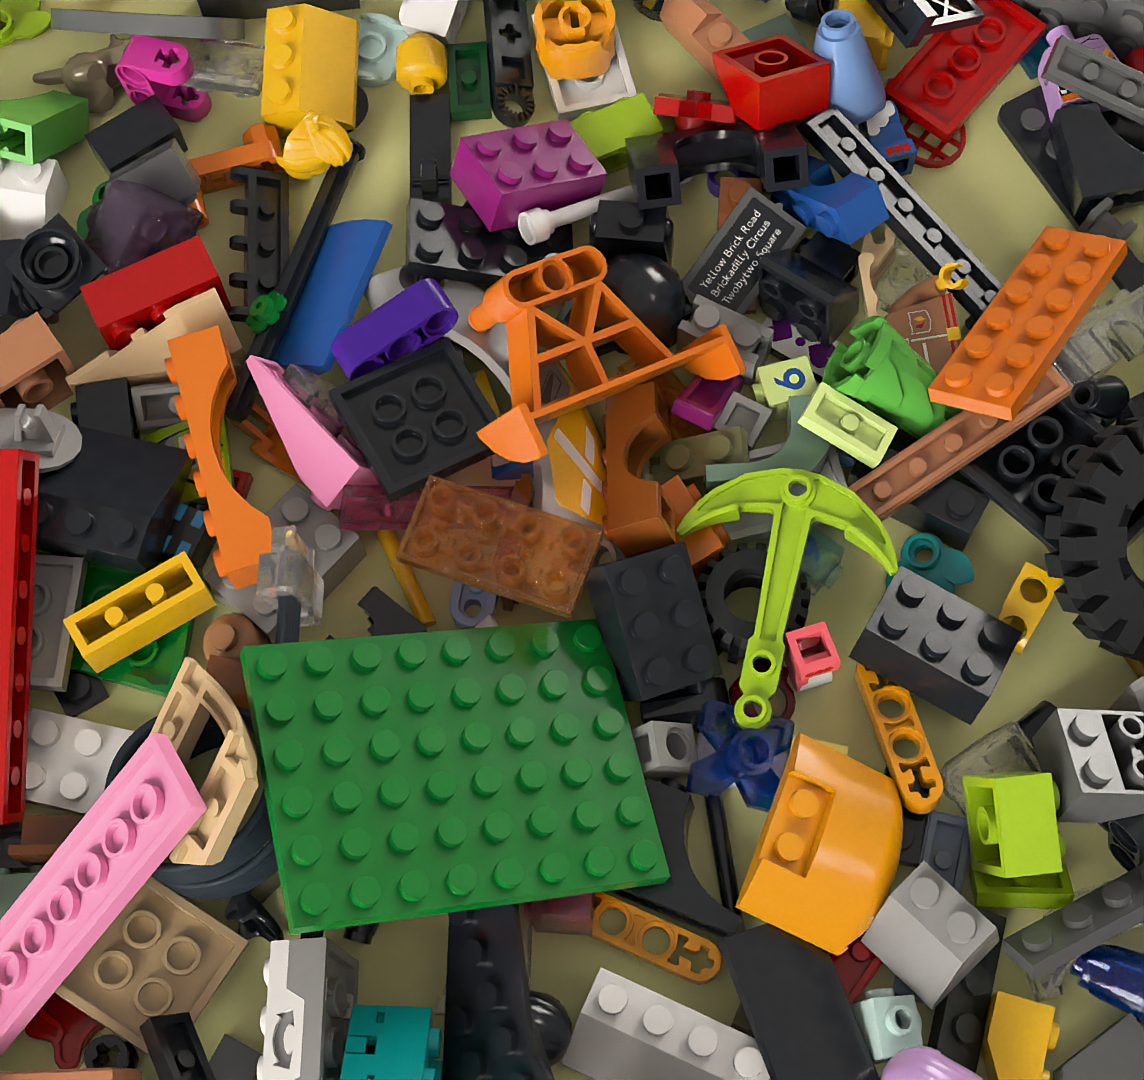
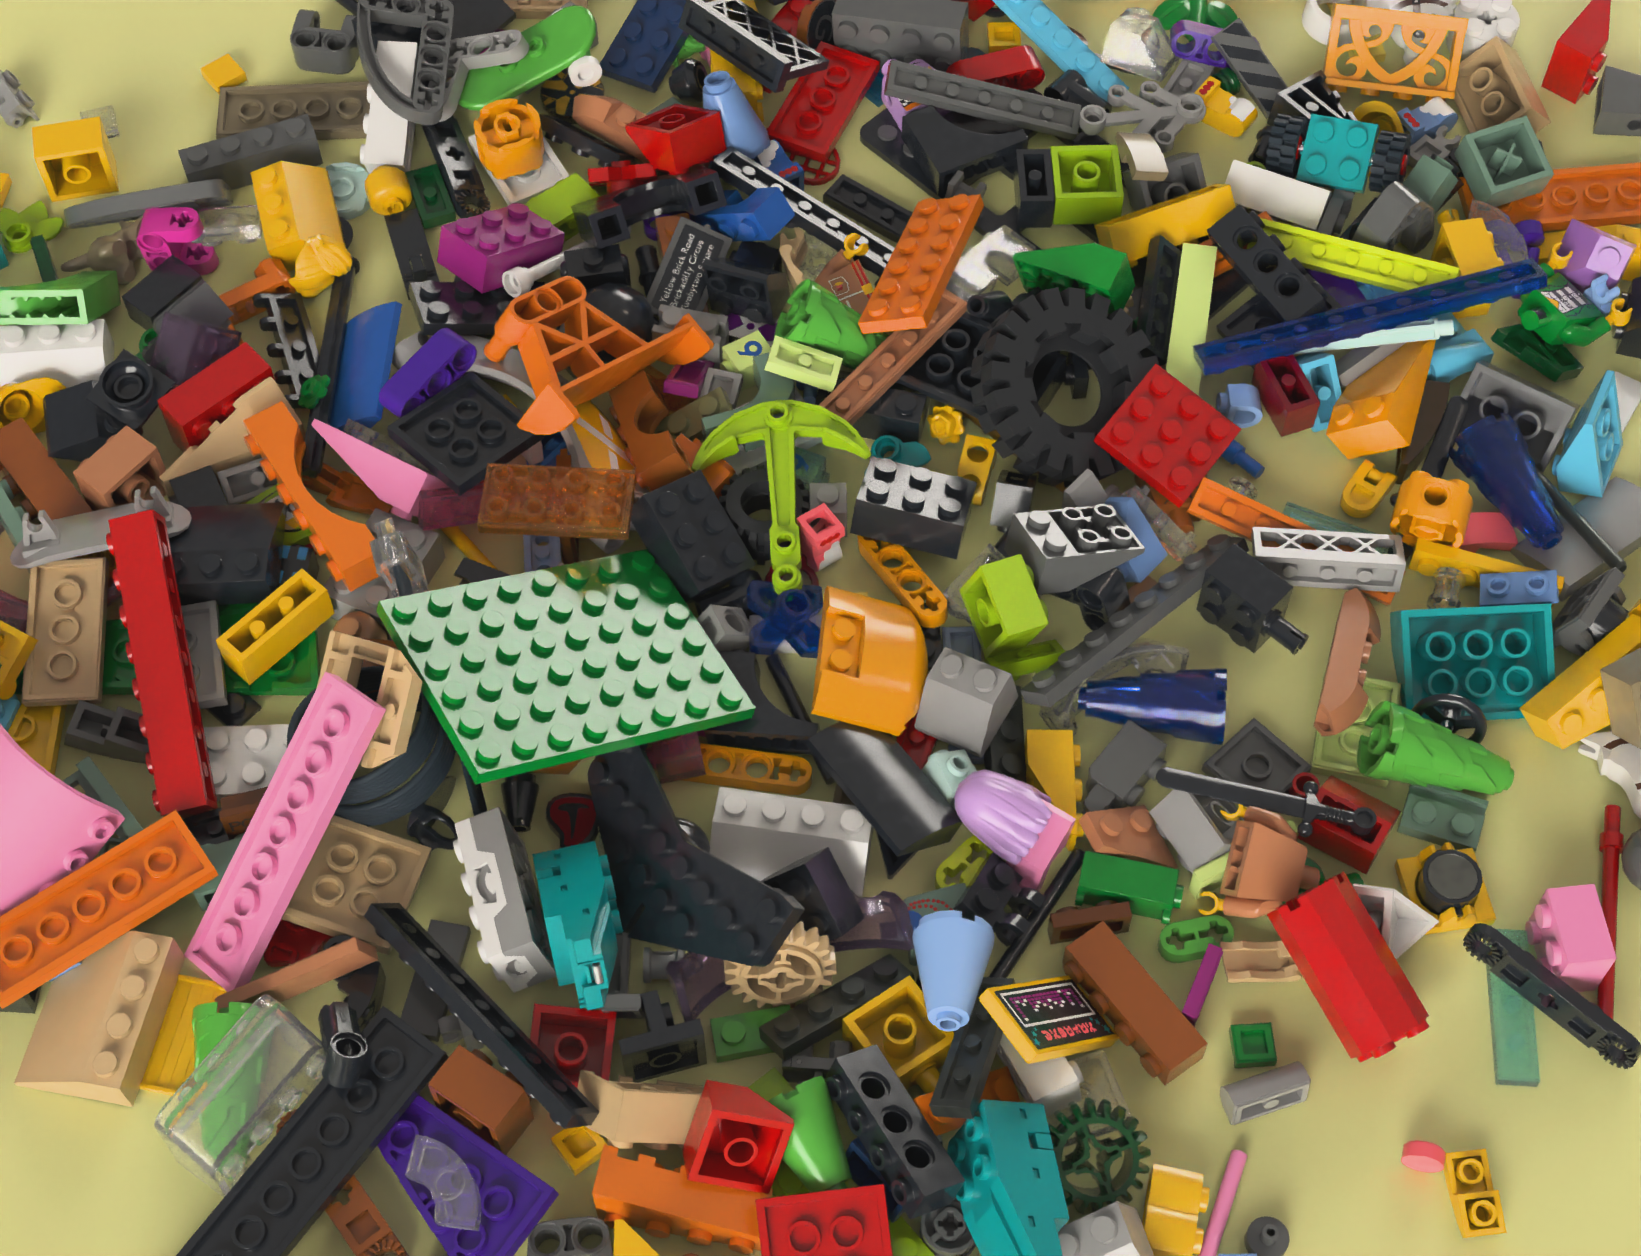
camera: 20 degrees left, 10 degrees down
(16, 68) = (43, 259): none -> dark green tile
(422, 953) = (572, 818): none -> piece
(664, 50) = (581, 141): none -> black plate
(699, 233) = (648, 265): none -> black axle
(835, 607) = (835, 498): none -> light grey brick
(985, 216) = (867, 207): none -> black tile
(1004, 535) = (946, 424): none -> yellow plant
(1060, 662) = (1012, 495): none -> slope

